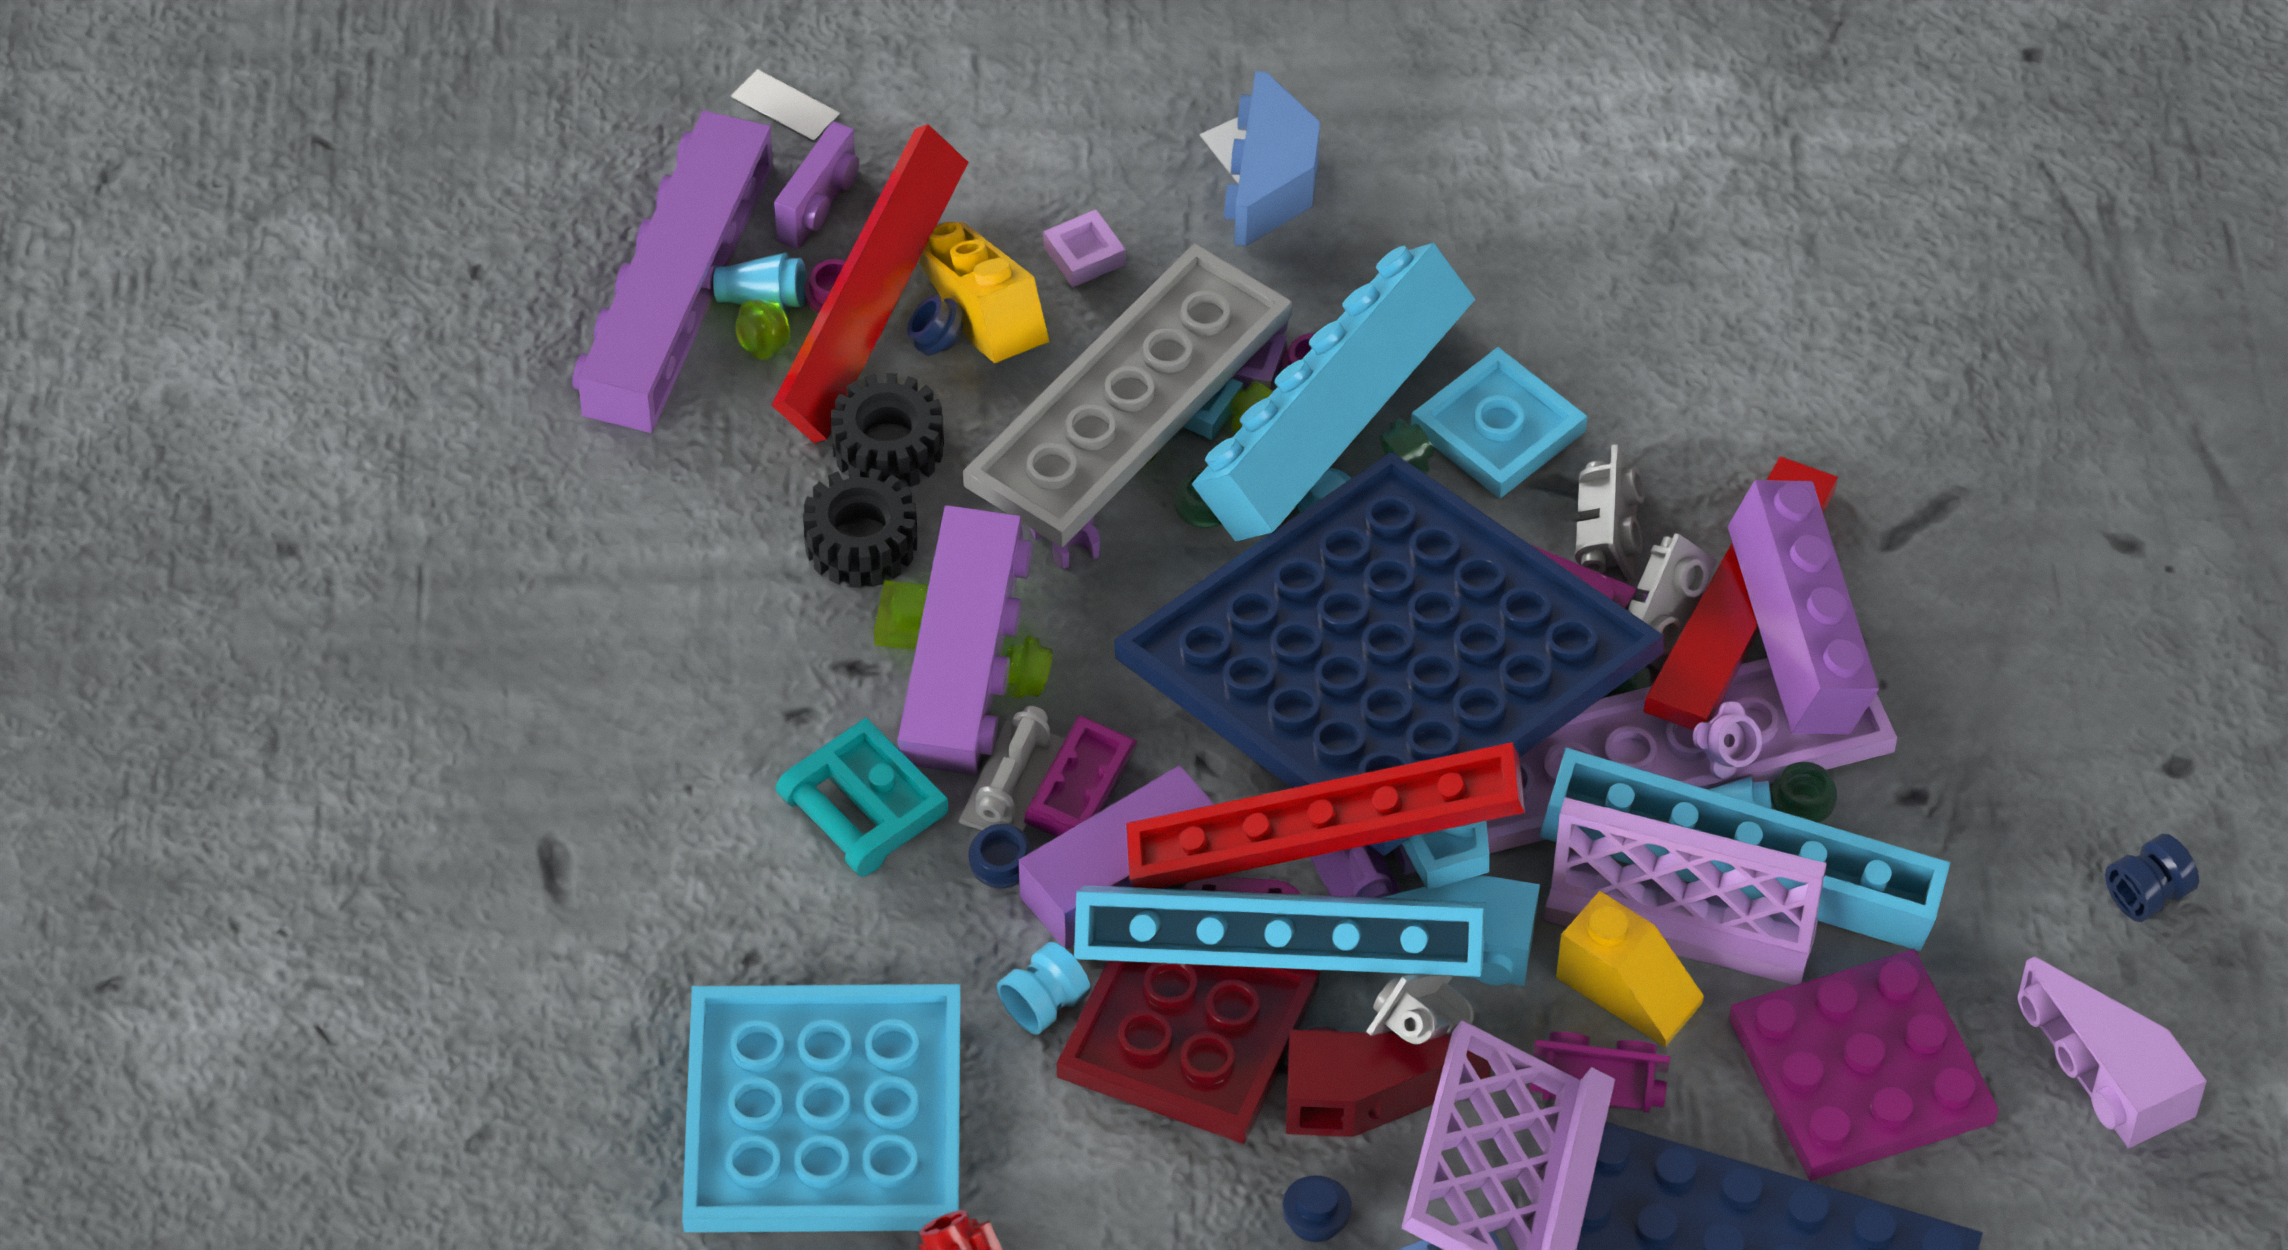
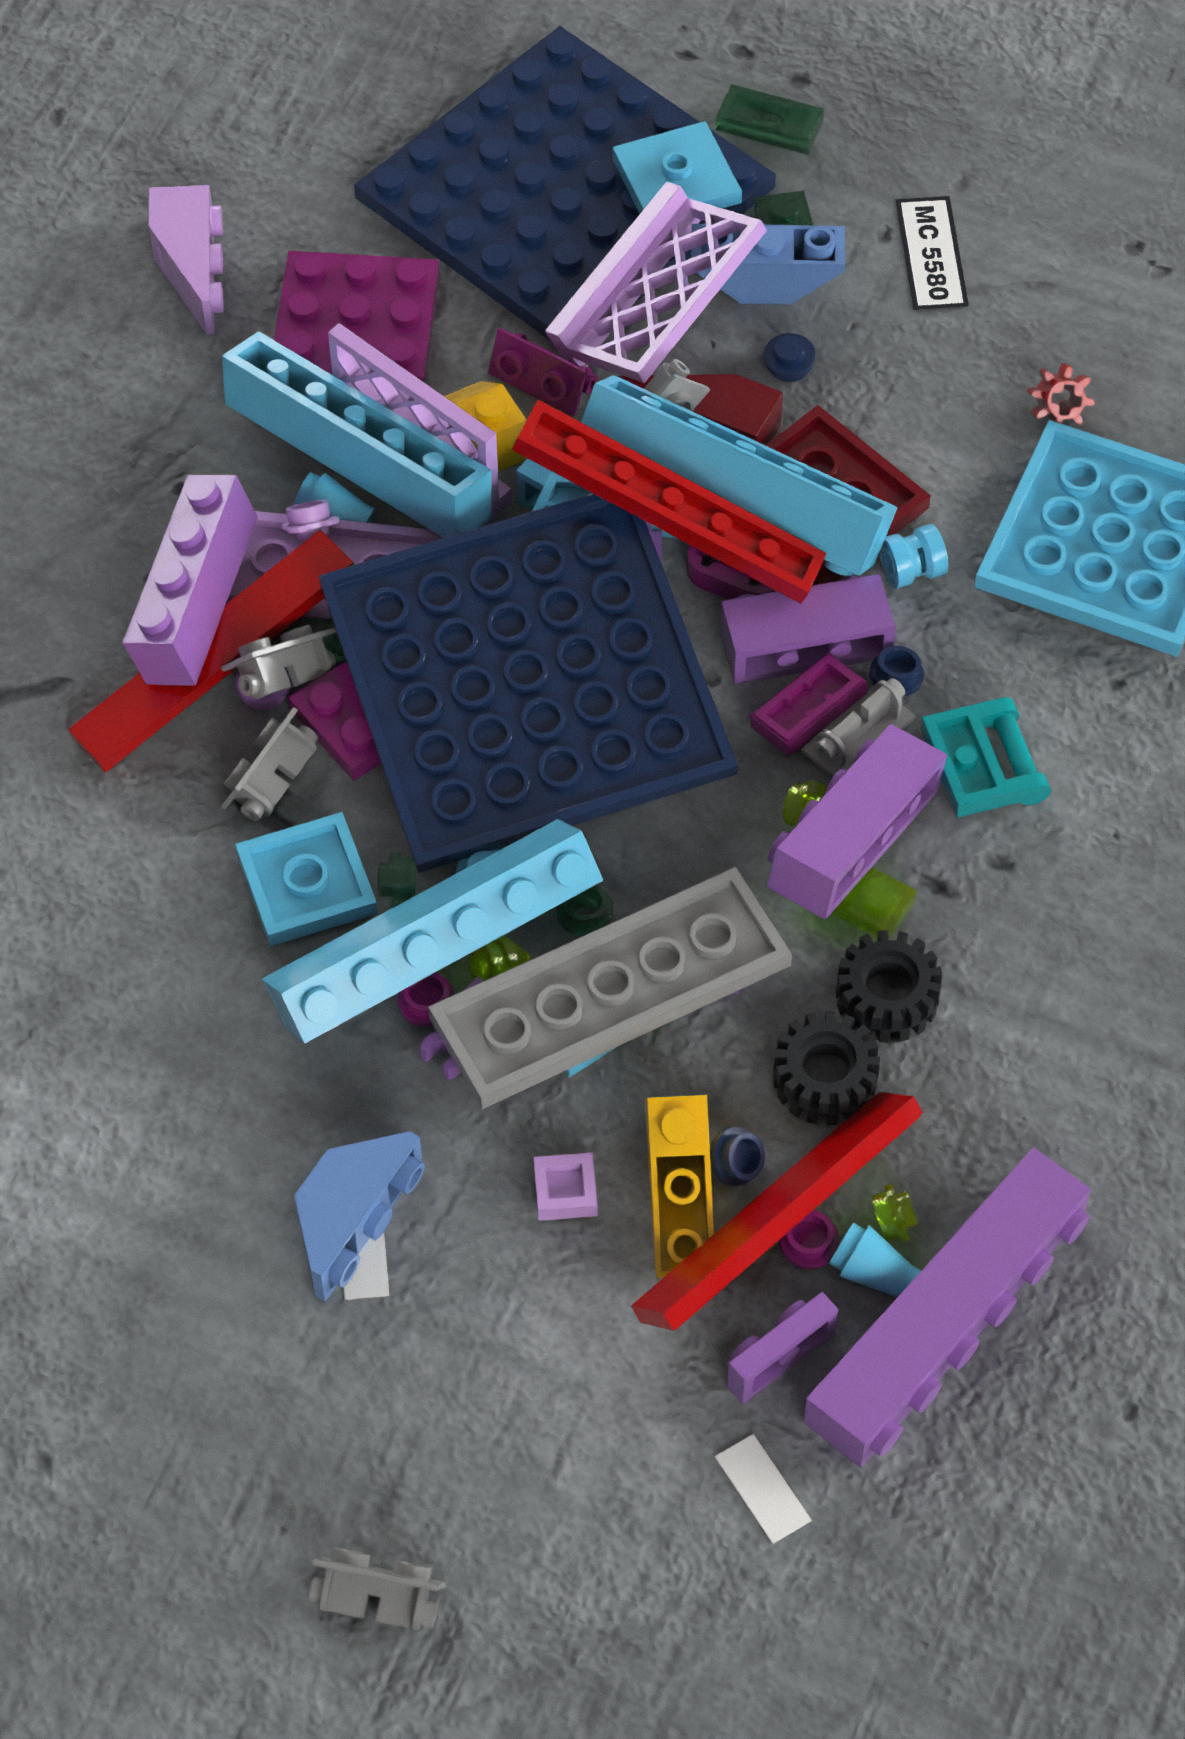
camera: 155 degrees left, 5 degrees up
(1807, 780) = (270, 492): clear green plate -> none
(2157, 874) = (70, 349): dark blue wheel -> none

